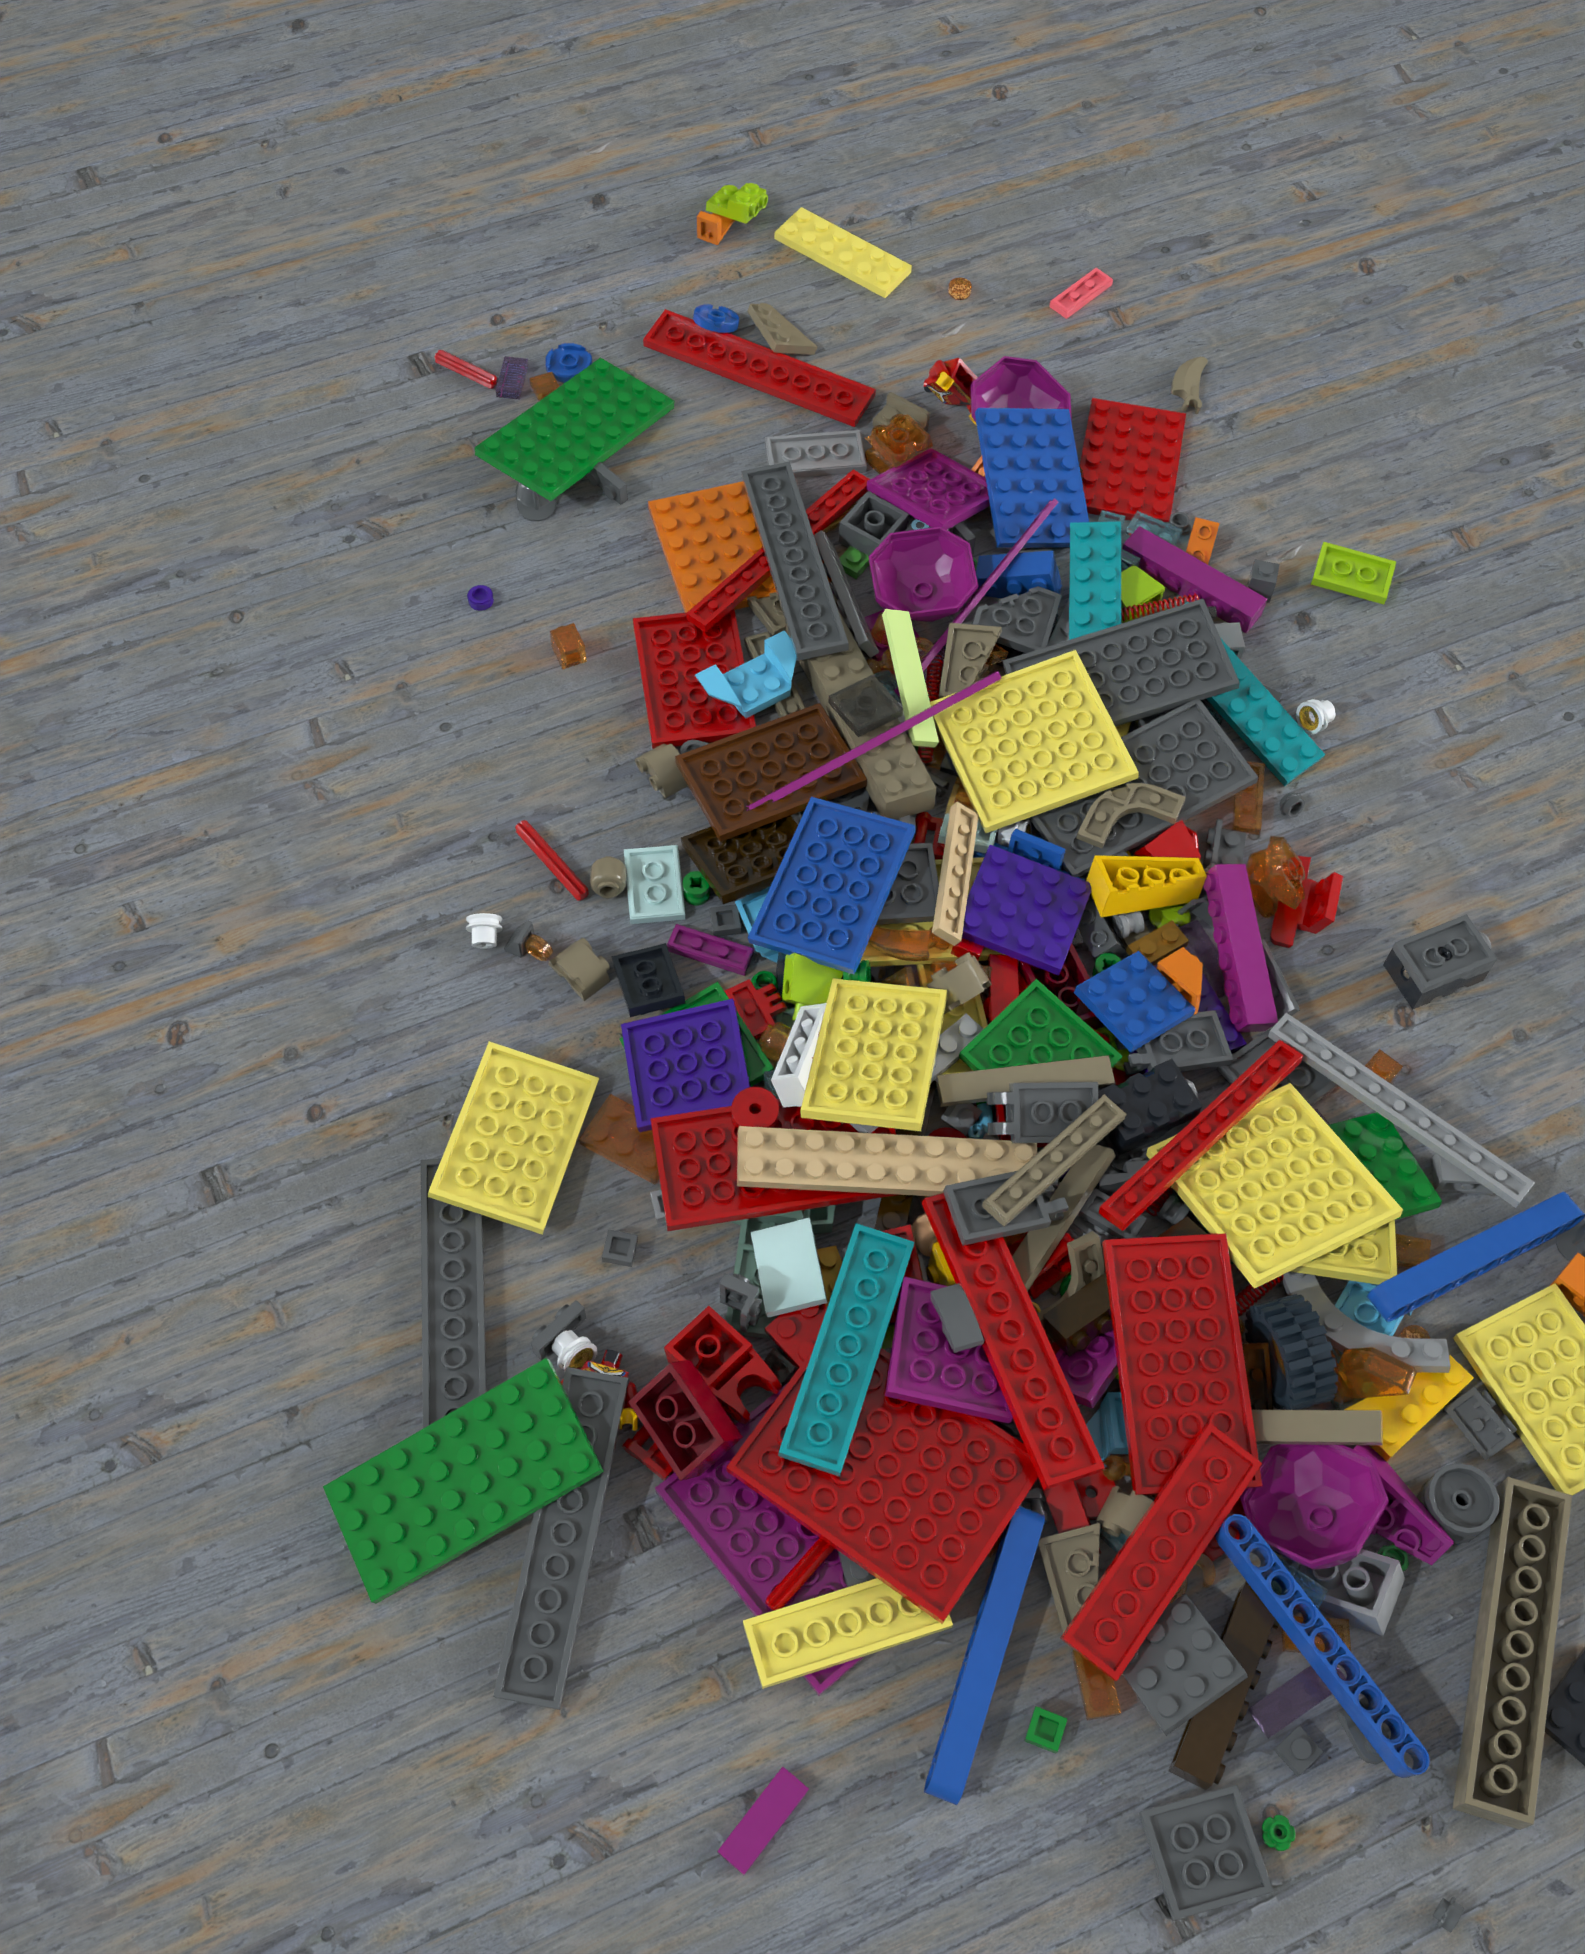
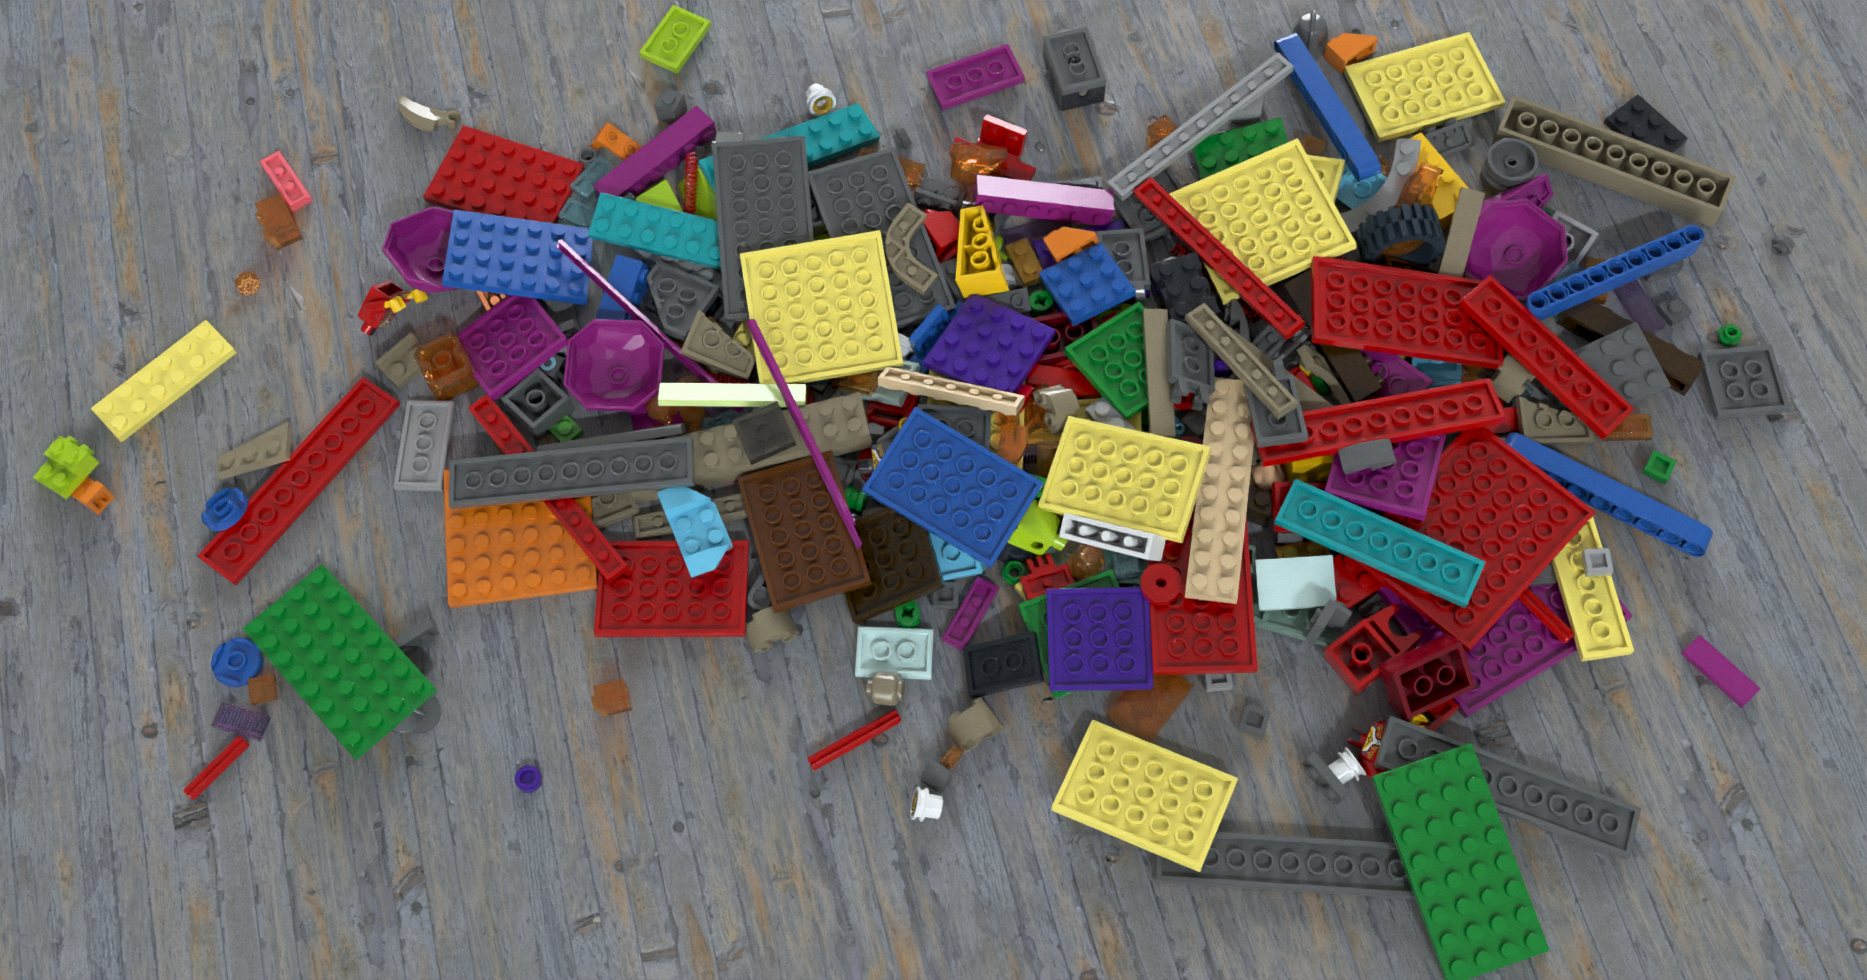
camera: 75 degrees left, 5 degrees up
(874, 1628) = (1597, 562): none -> light grey plate
(1031, 293) = (278, 221): none -> clear orange brick
(1400, 866) = (975, 76): none -> magenta plate

